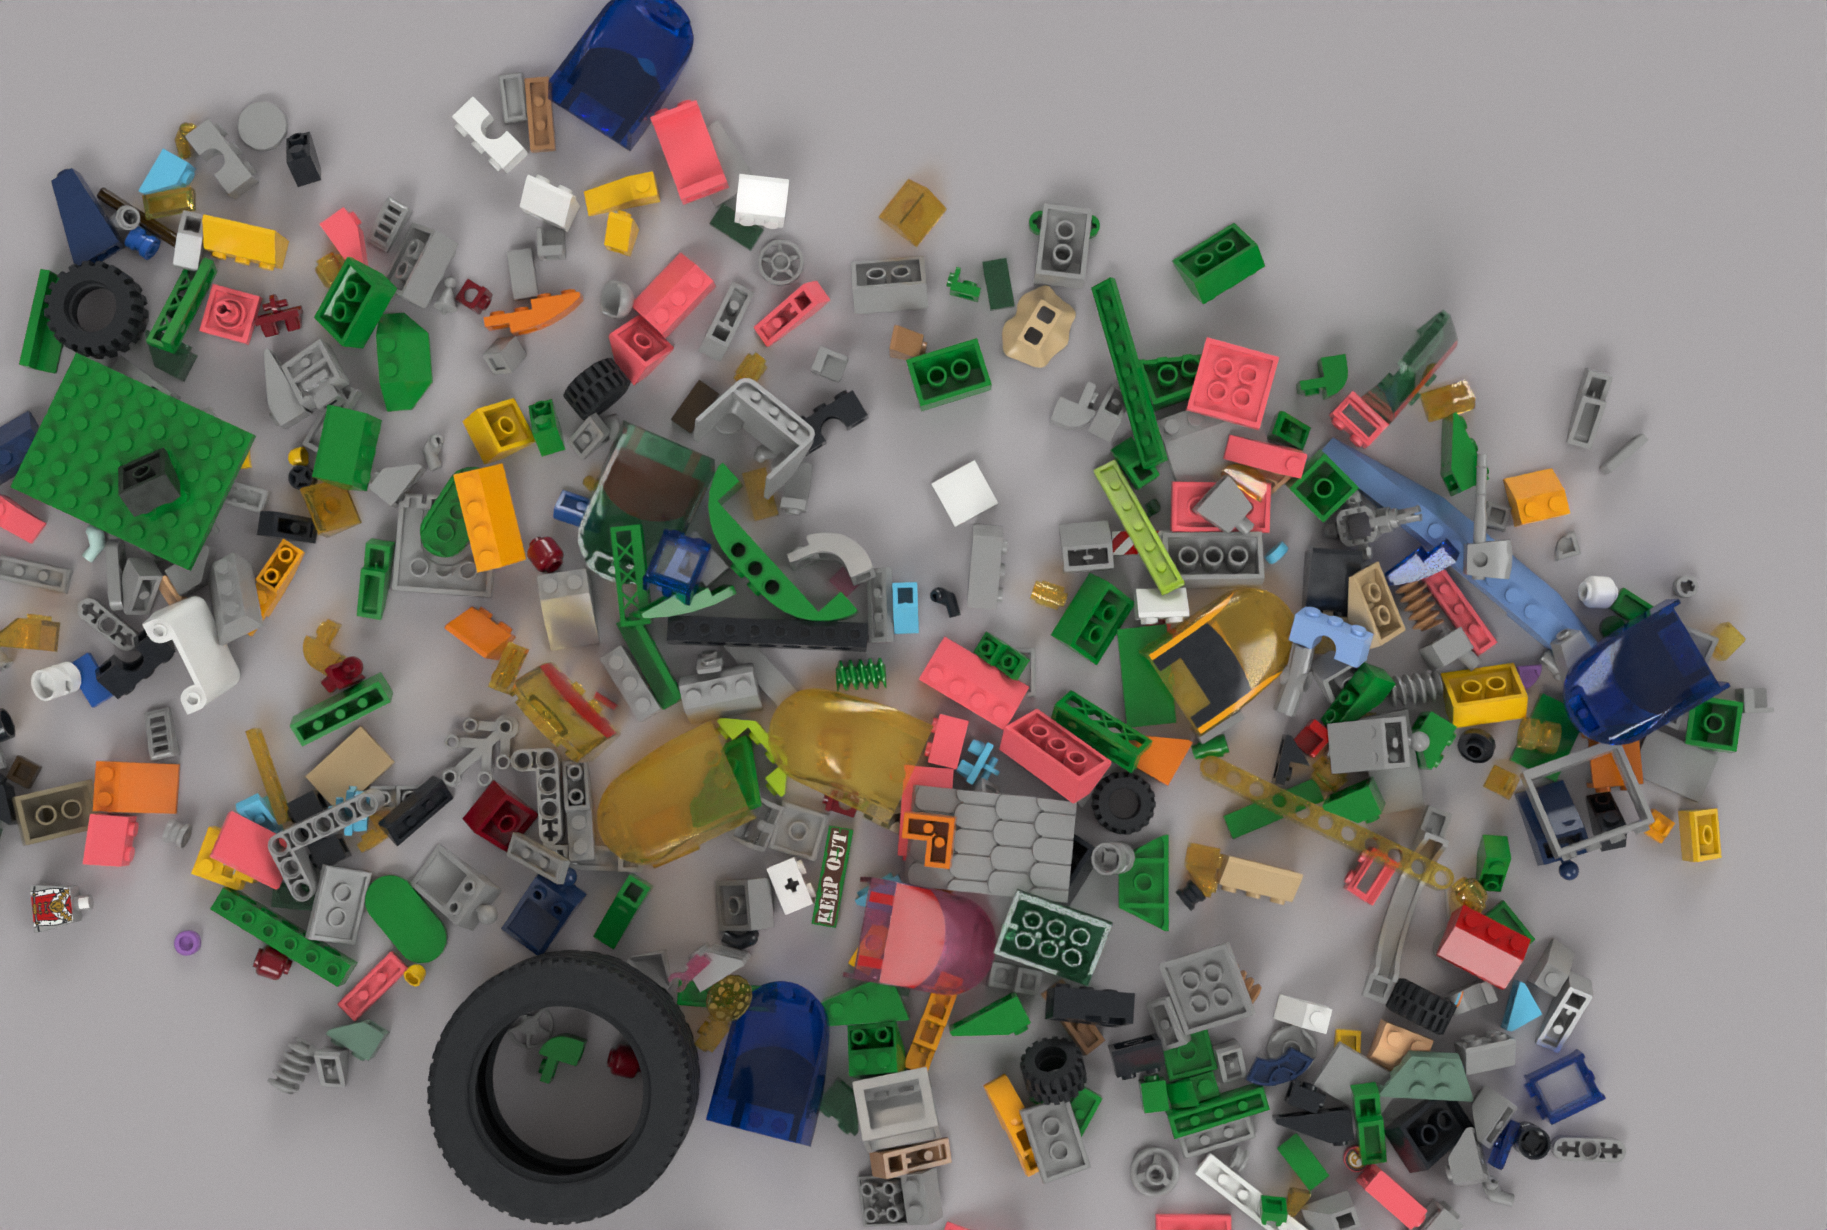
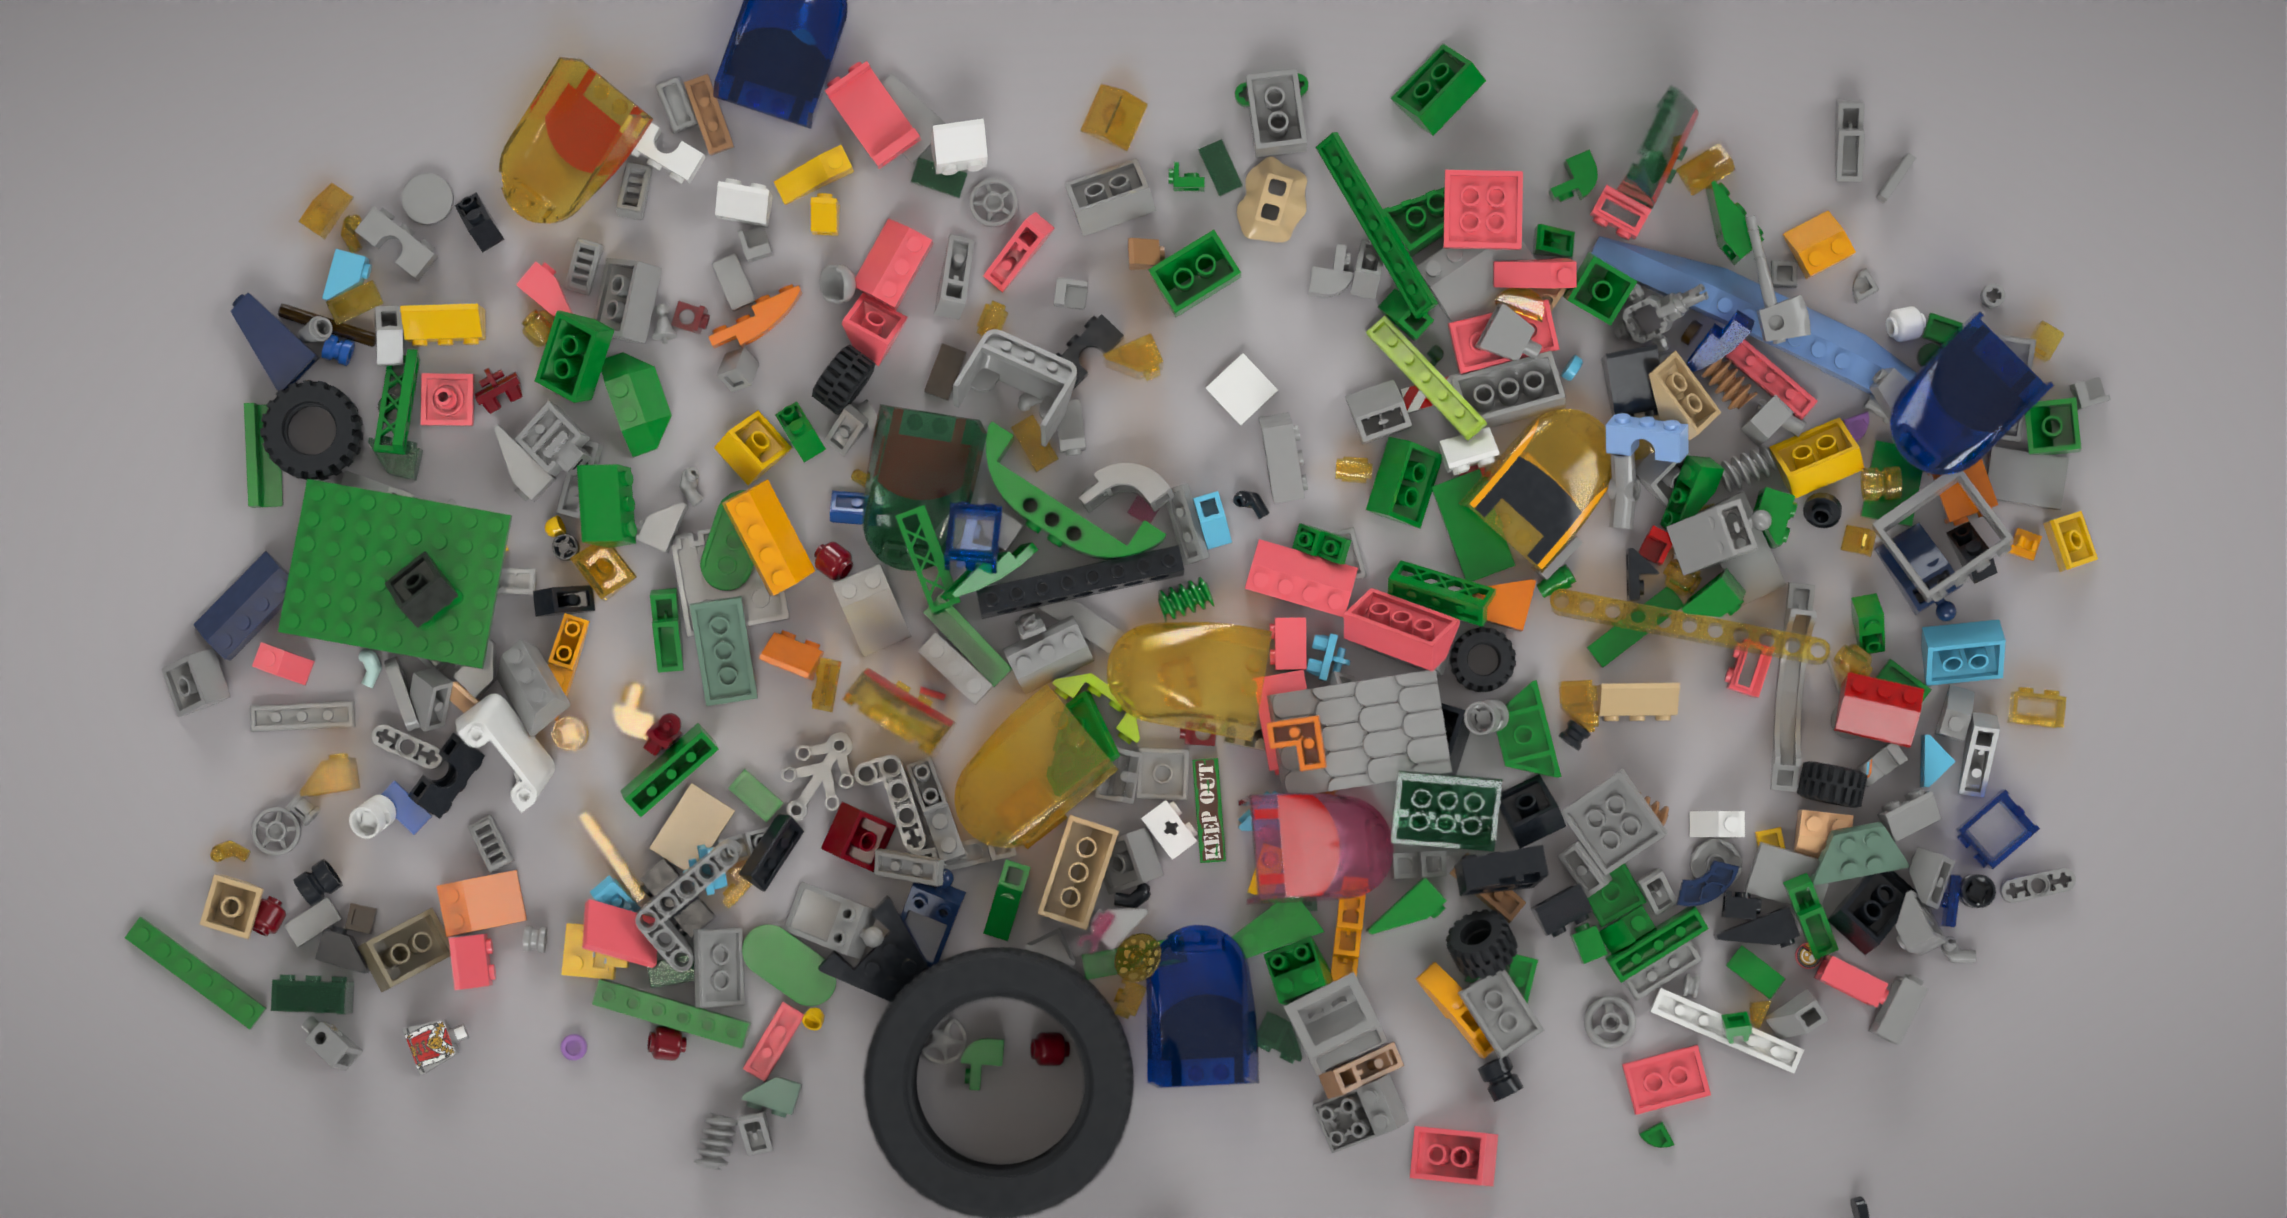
camera: 20 degrees left, 0 degrees up
(165, 112) = (326, 210): none -> clear yellow slope
(259, 651) = (570, 733): none -> clear yellow wheel
(402, 105) = (568, 143): none -> clear yellow windscreen
(417, 753) = (755, 795): none -> green tile
(421, 611) = (723, 651): none -> sand green plate
(456, 180) = (630, 211): none -> light grey slope
(493, 945) = (885, 967): none -> black wing
(694, 903) = (1078, 872): none -> tan slope
(872, 439) = (1136, 359): none -> clear yellow slope
(1039, 1203) = (1500, 1078): none -> black wheel
(1131, 956) = (1530, 811): none -> black slope
(1395, 548) = (1691, 332): none -> dark brown tile
(1574, 912) = (1963, 652): none -> medium azure slope
(1630, 984) = (2037, 709): none -> clear yellow window

